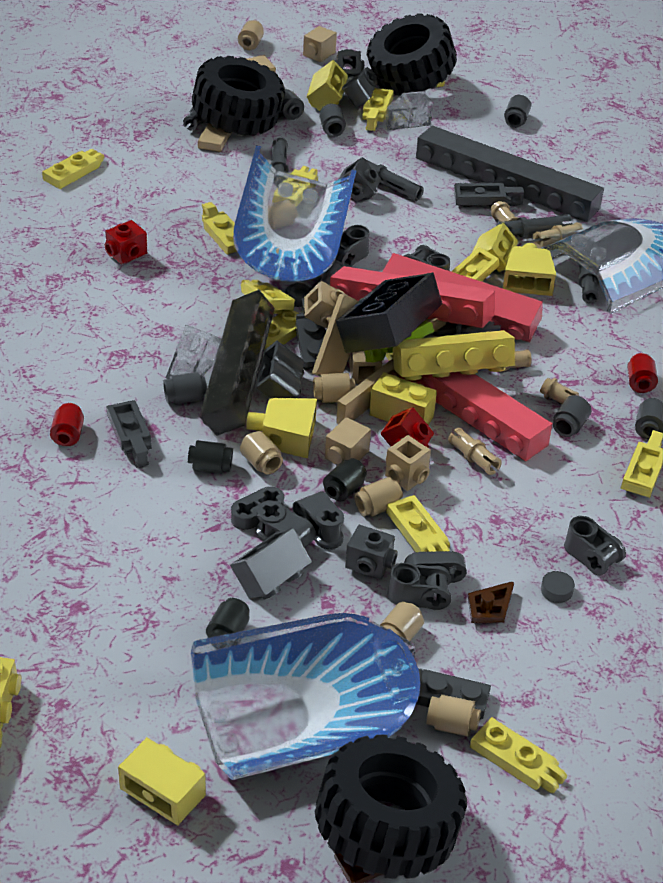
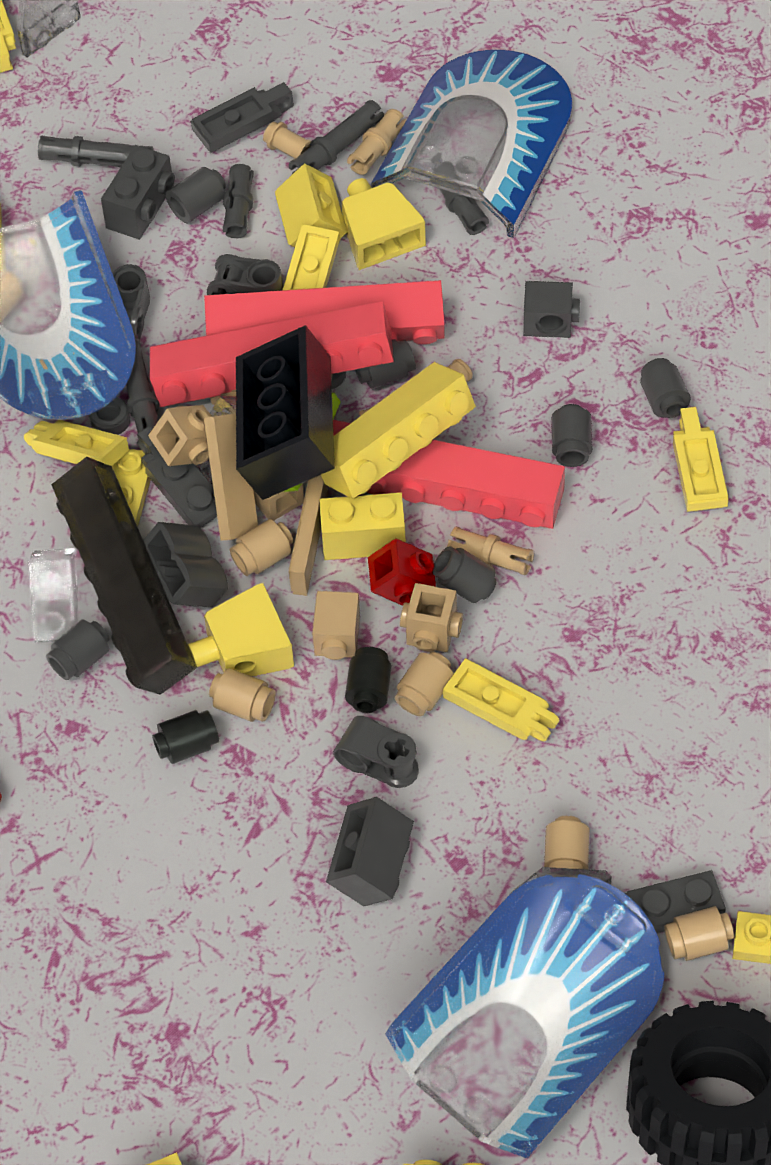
camera: 25 degrees left, 15 degrees up
(130, 430) = (56, 749): dark grey hinge -> none
(229, 618) = (373, 958): pearl dark grey brick -> none
(245, 509) = (297, 780): dark grey beam -> none
(284, 520) = (343, 788): dark grey piece -> none
(365, 180) = (61, 176): dark grey brick -> none
(370, 552) = (472, 769): dark grey brick -> none
(397, 201) = (137, 192): none -> dark grey brick
(418, 584) = (560, 779): dark grey piece -> none
(431, 216) = (196, 194): none -> dark grey brick
(441, 558) = (553, 746): dark grey beam -> none
(447, 452) = (465, 574): none -> dark grey brick
(453, 230) = (238, 201): none -> dark grey pin
(490, 604) = (642, 760): reddish brown piece -> none
(493, 165) = (245, 61): dark grey brick -> none
(556, 391) = (532, 405): tan pin -> none
(557, 586) = (700, 693): dark grey tile -> none
(591, 544) = (710, 616): dark grey piece -> none
(604, 350) = (549, 309): none -> dark grey brick
(642, 373) = (613, 321): red brick -> none

